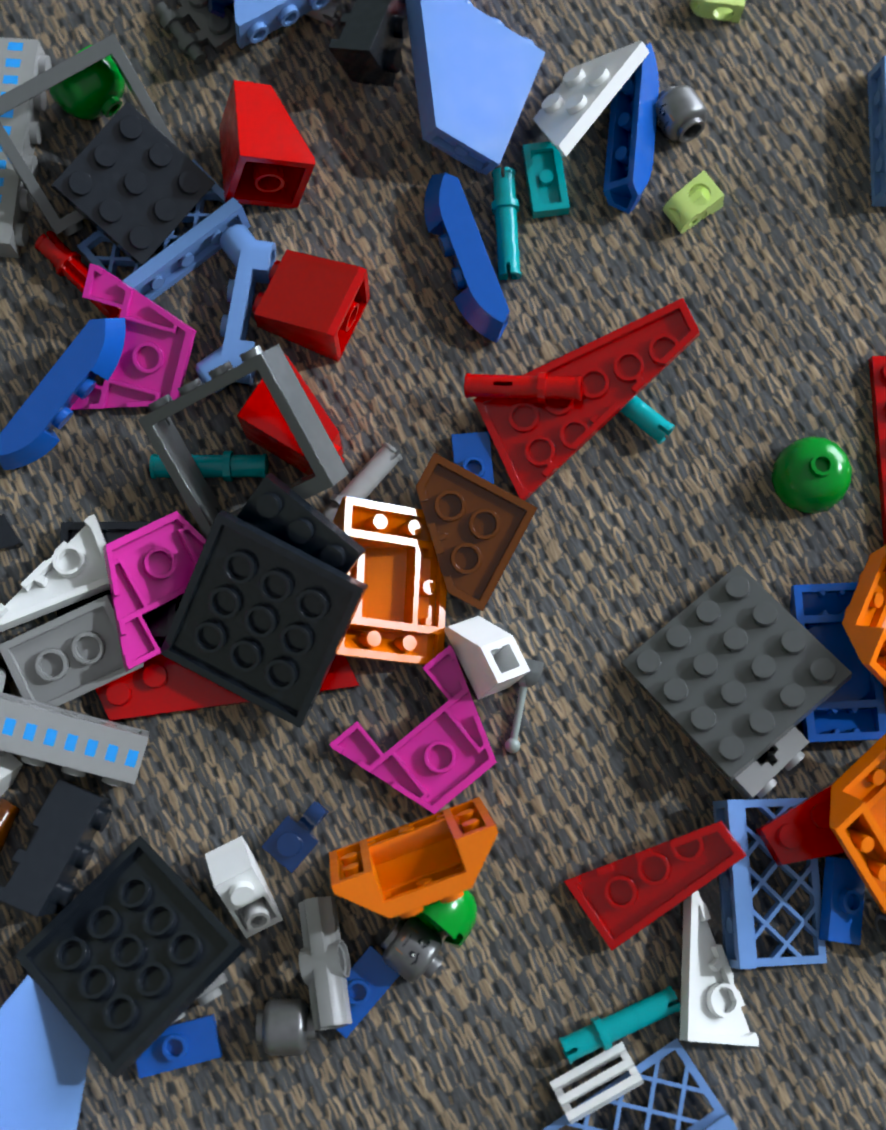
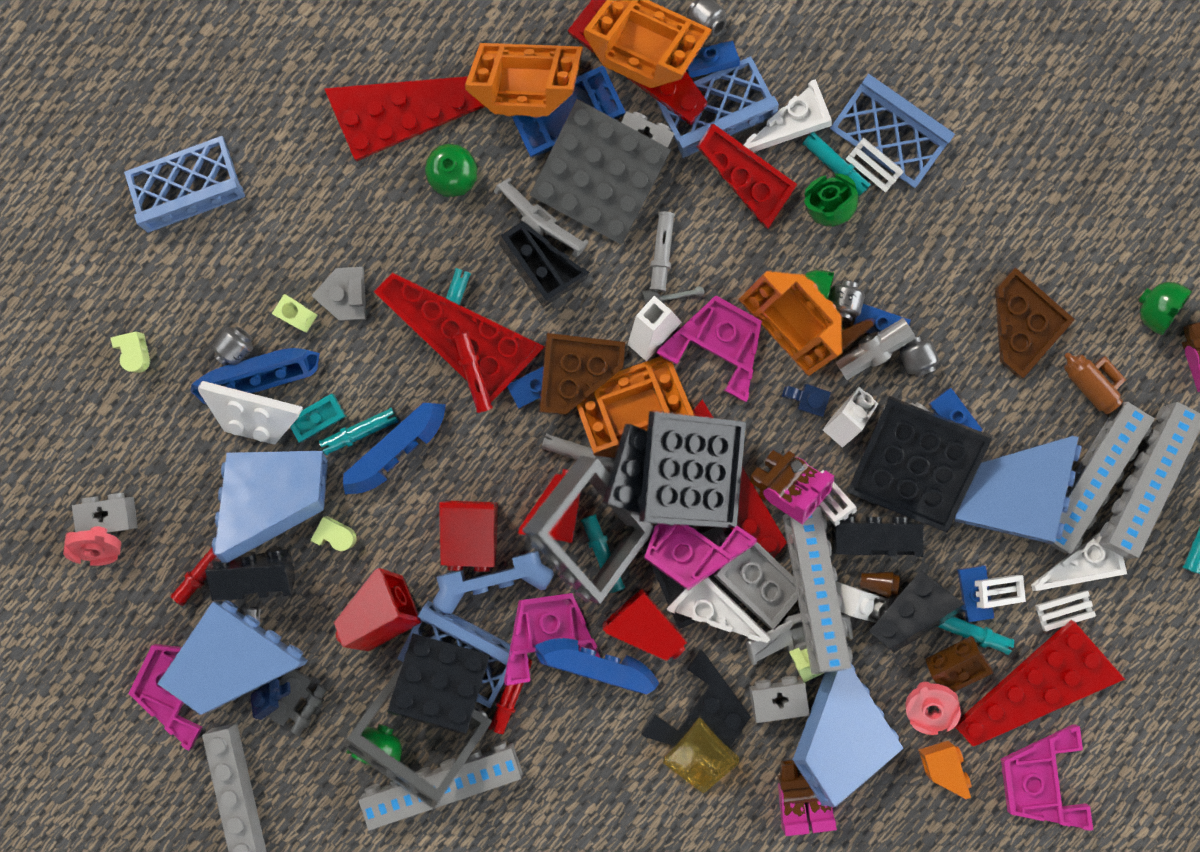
camera: 110 degrees left, 10 degrees up
(80, 476) = (646, 627): none -> red slope
(109, 811) = (842, 514): none -> white tile
(182, 756) = (792, 485): none -> hips
(360, 929) = (854, 331): none -> reddish brown slope
(387, 145) = (339, 535): none -> yellowish green leg
(568, 990) = (831, 200): none -> green cylinder
(588, 714) = (661, 263): none -> light grey pin
(632, 538) = (540, 264): none -> black wedge
(695, 274) = (344, 294): none -> light grey plate
(699, 562) = (539, 219): none -> light grey plate

